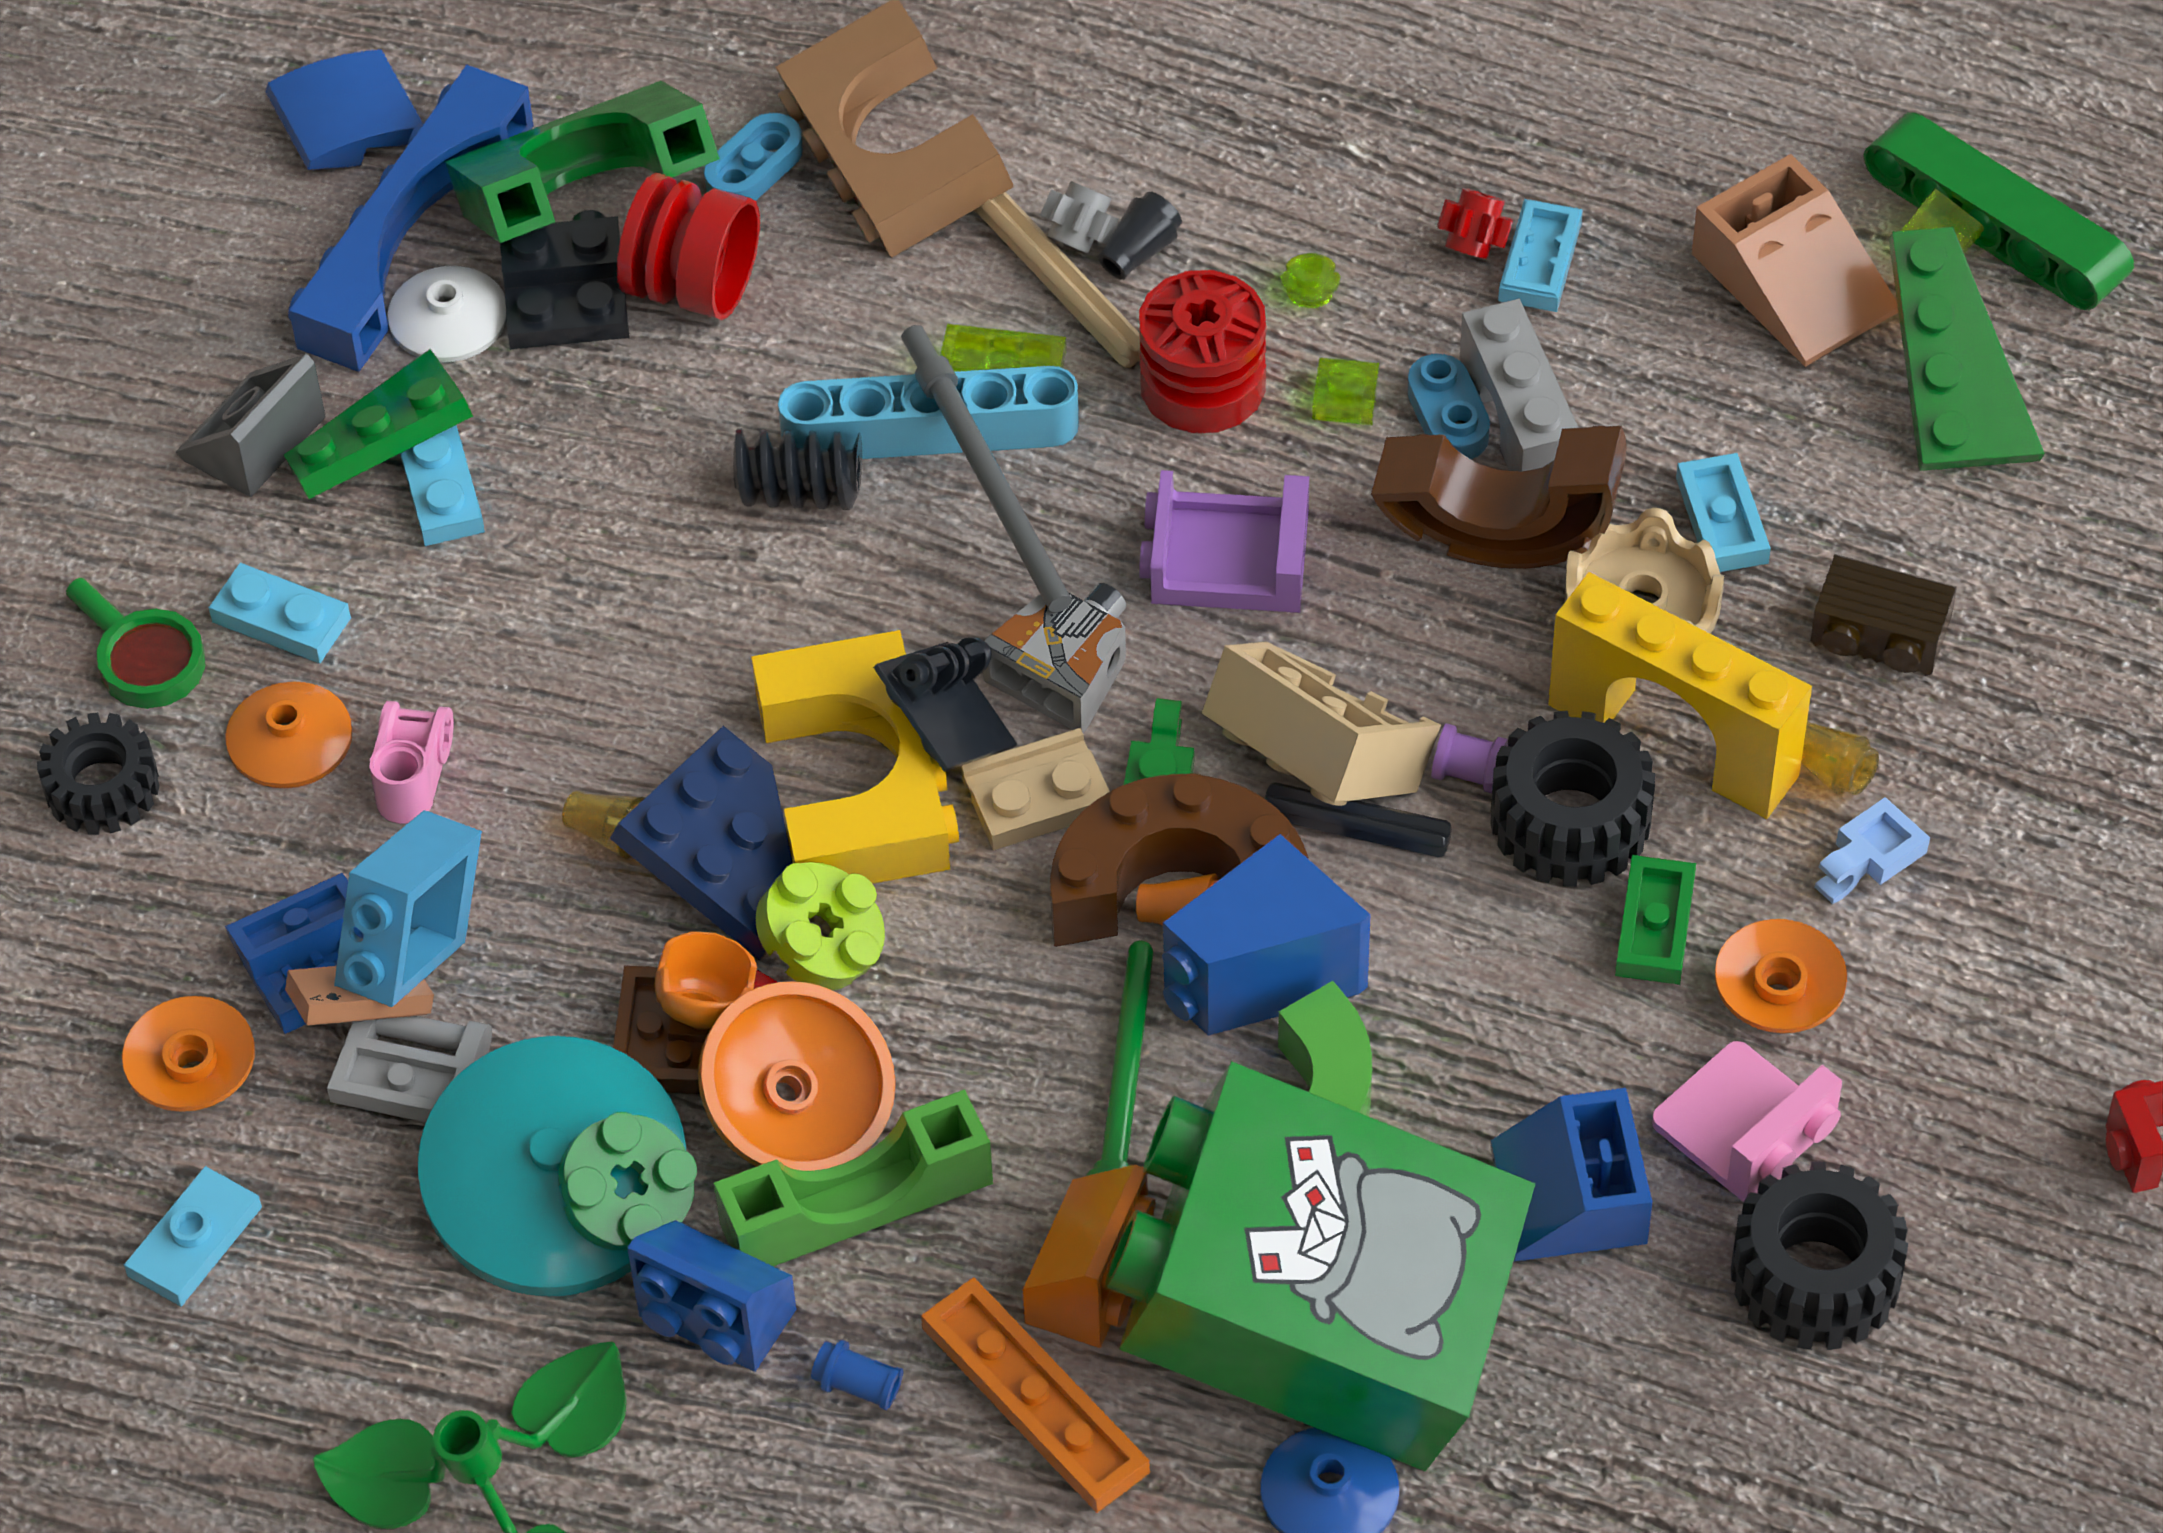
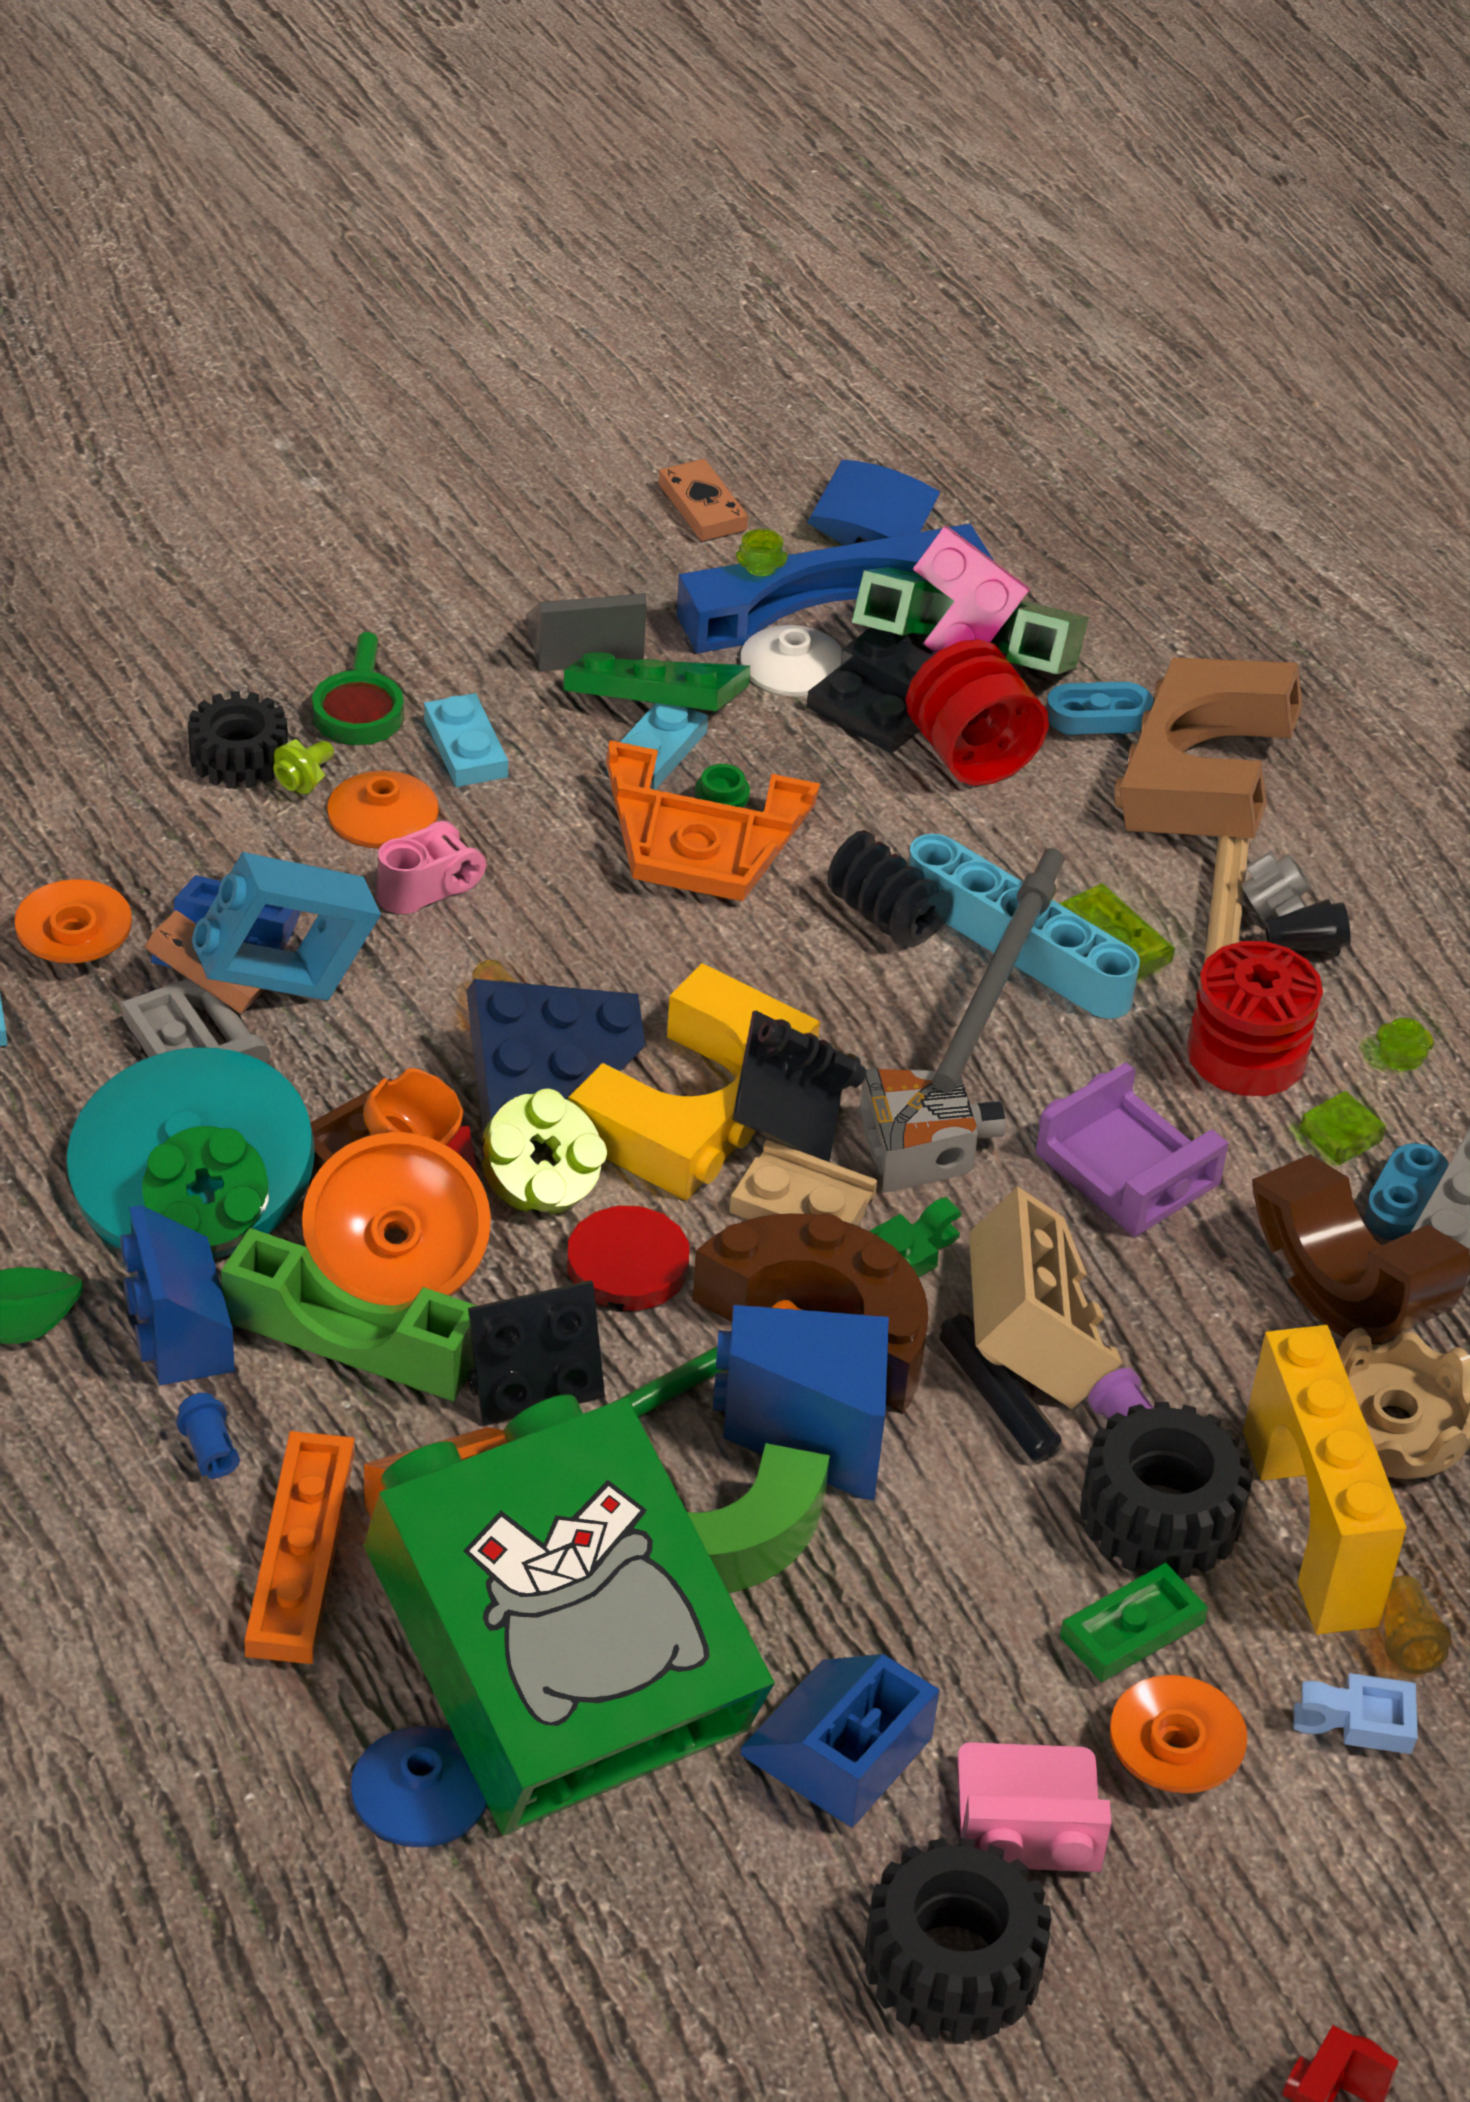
camera: 40 degrees right, 10 degrees down
(183, 753) = (299, 767): none -> lime plate
(187, 216) = (703, 499): none -> nougat tile
(344, 233) = (761, 552): none -> clear neon green plate
(549, 484) = (723, 785): none -> green plate
(575, 134) = (978, 585): none -> plate
(587, 552) = (696, 840): none -> orange wing
(974, 953) = (630, 1256): none -> red tile
(1030, 1091) = (535, 1350): none -> black hinge

